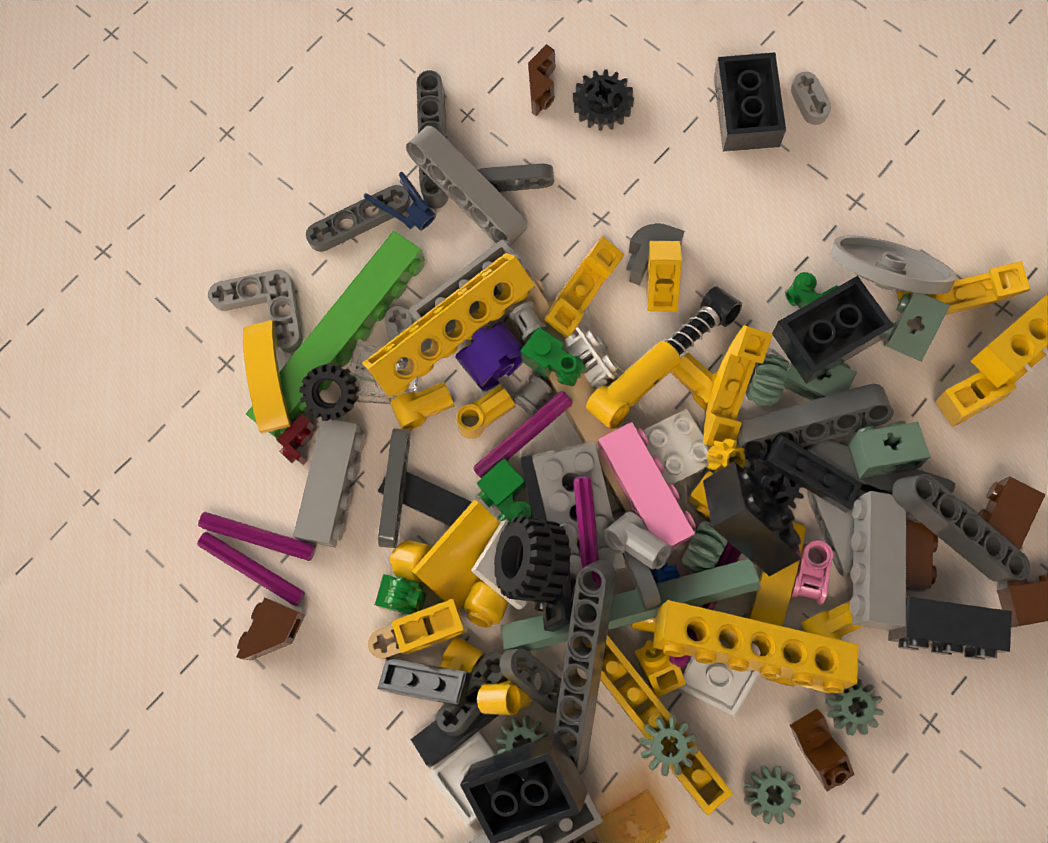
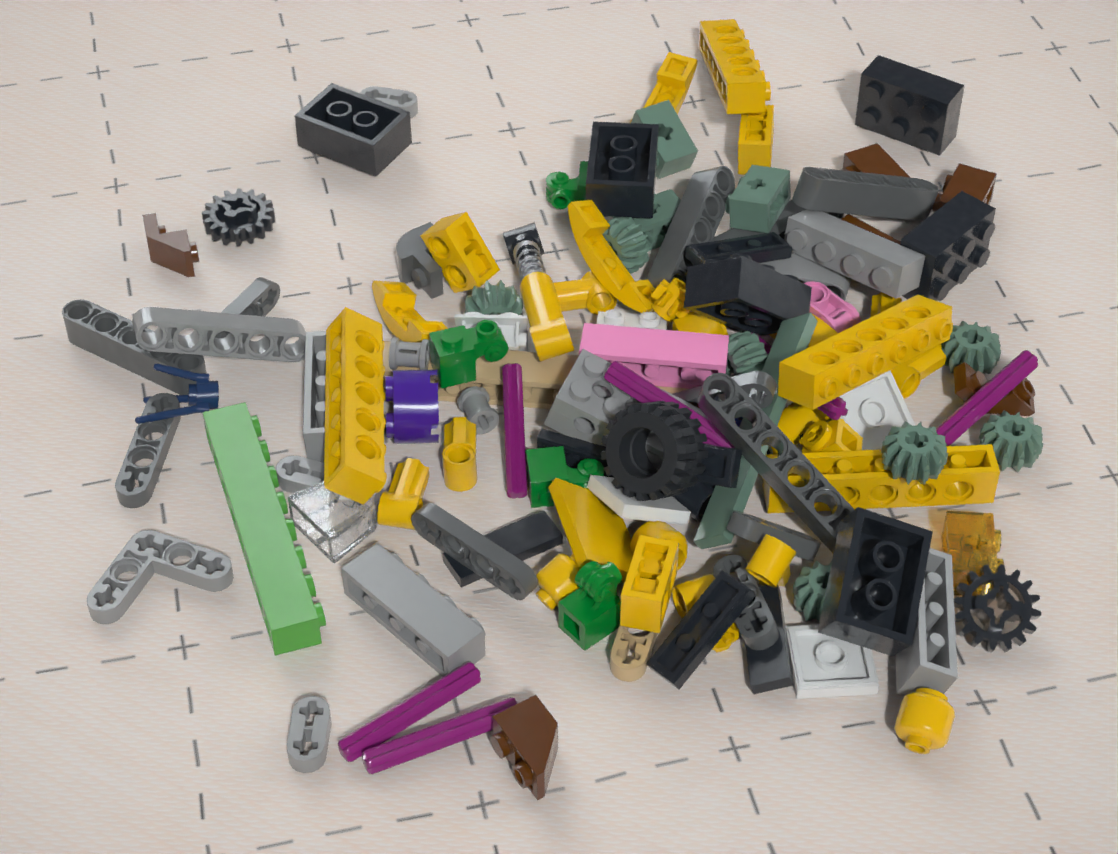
camera: 65 degrees left, 30 degrees down
(198, 484) = (301, 733): none -> light grey beam
(264, 377) = (252, 581): yellow slope -> none
(294, 436) = (341, 622): dark red bracket -> none
(311, 391) = (316, 554): black tyre -> none
(629, 337) = (494, 300): none -> sand green gear
(631, 536) = (714, 360): light grey piece -> none
(793, 753) = (987, 396): none -> magenta axle
(893, 265) = (609, 107): light grey dish -> none

